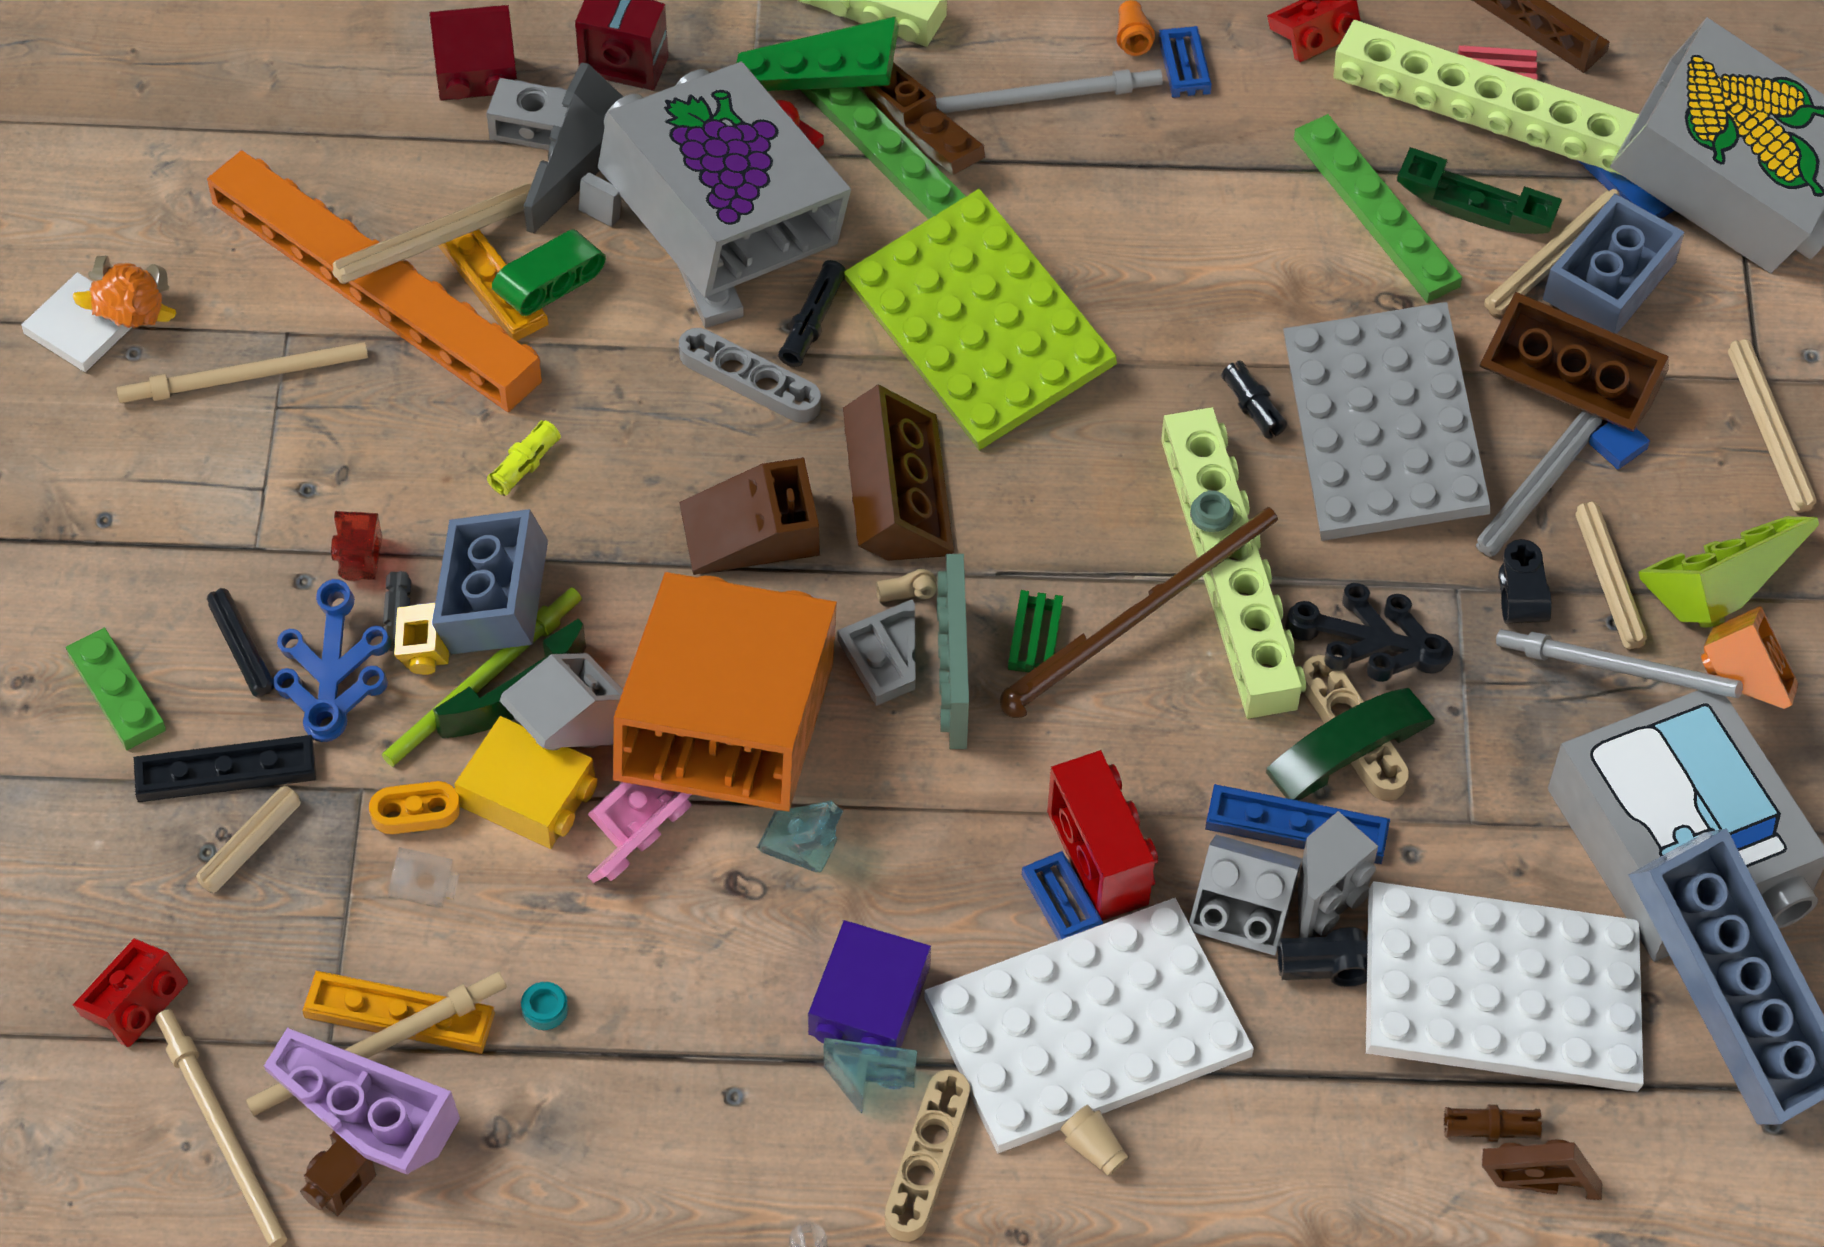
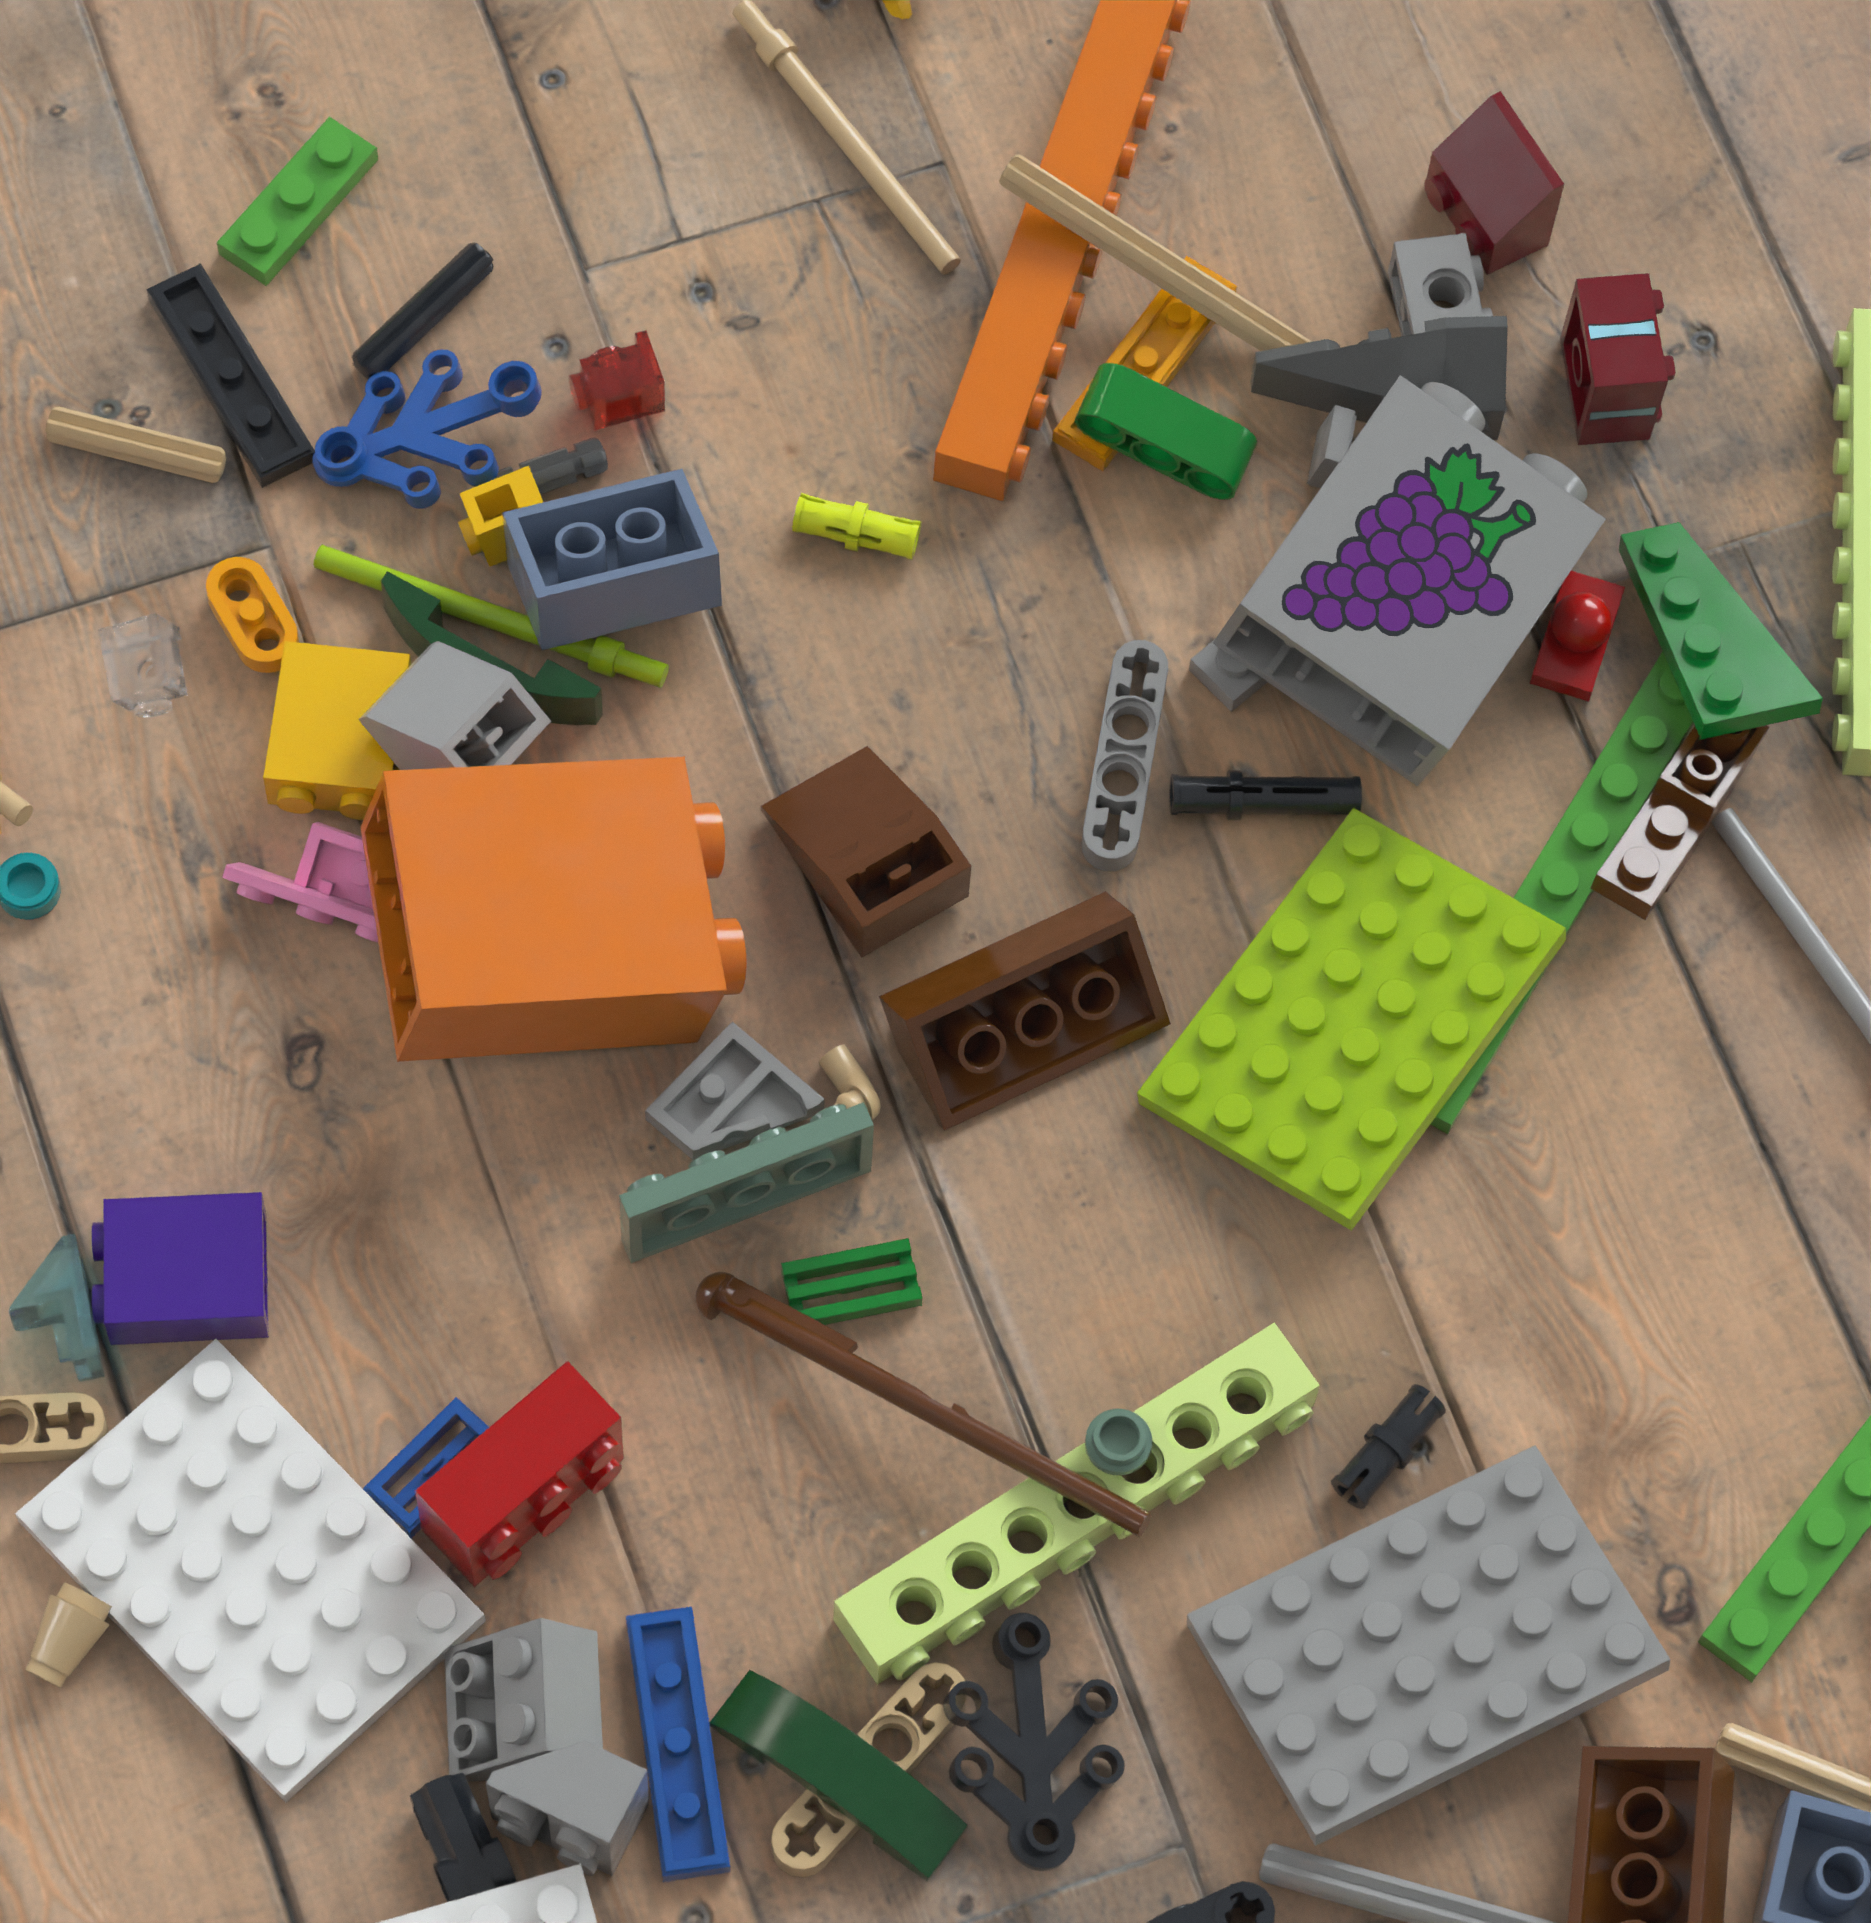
camera: 65 degrees right, 10 degrees up
(802, 835) = (390, 1102): clear light blue slope -> none

